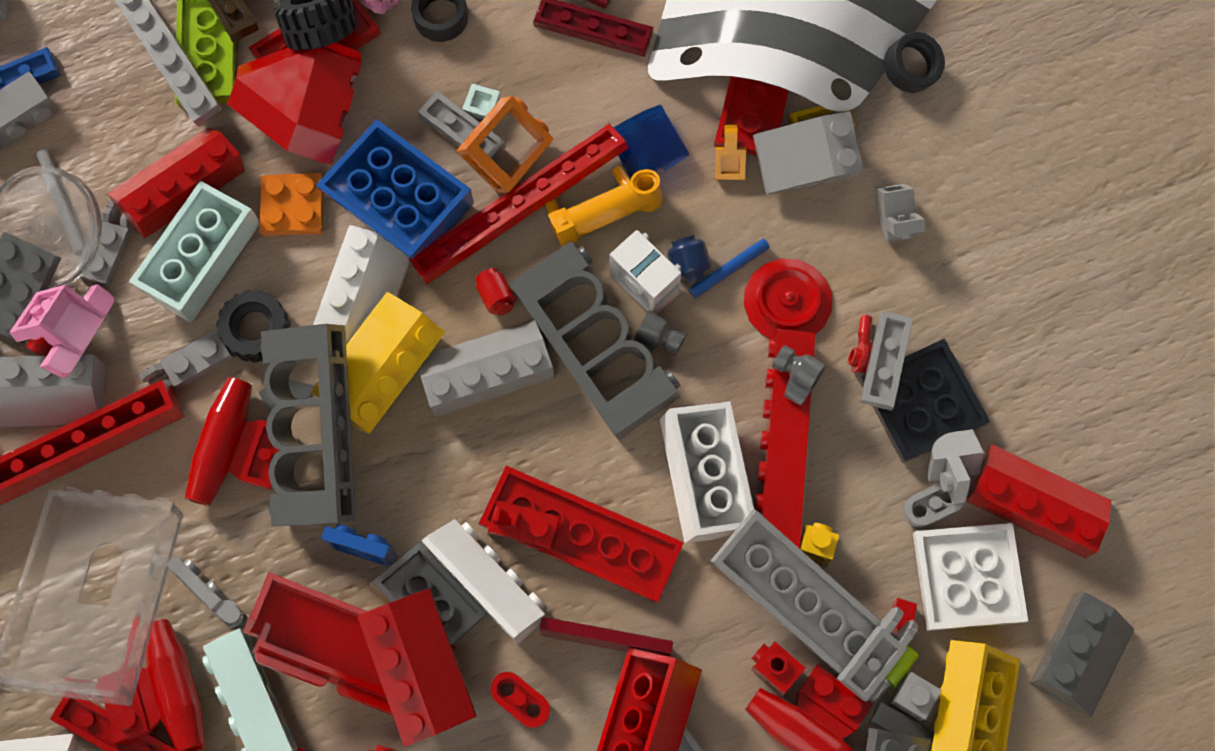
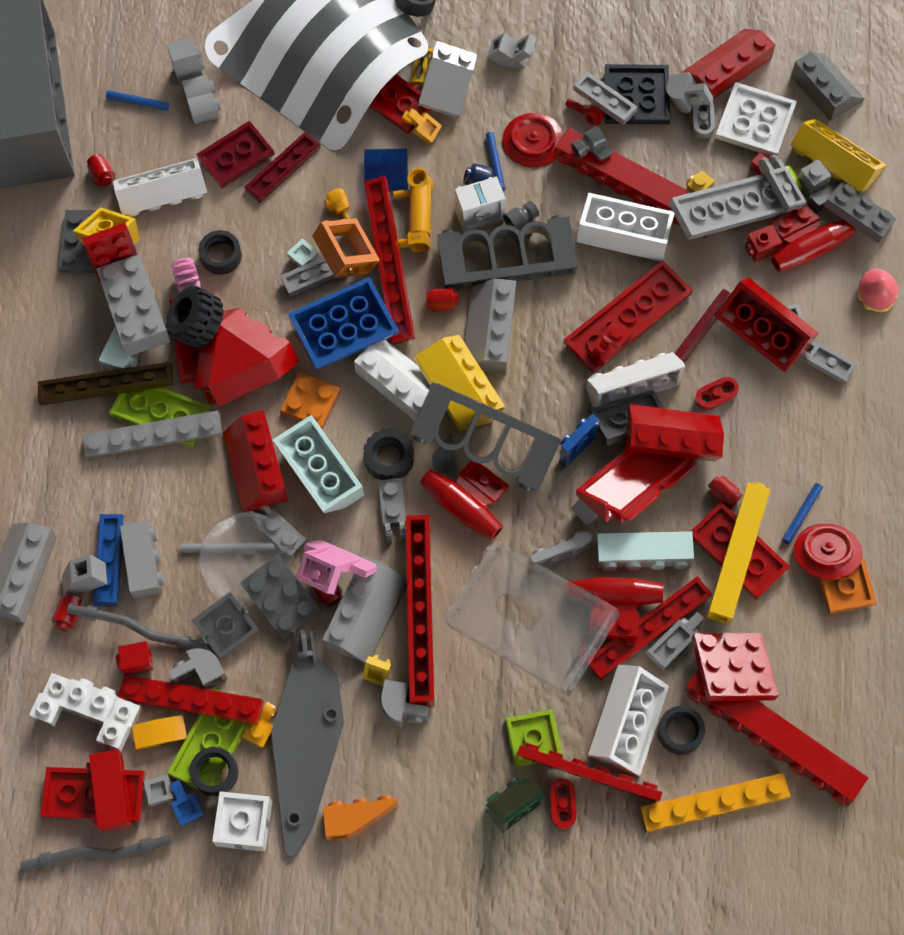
camera: 65 degrees left, 5 degrees down
(573, 109) = (337, 202): none -> light orange piece

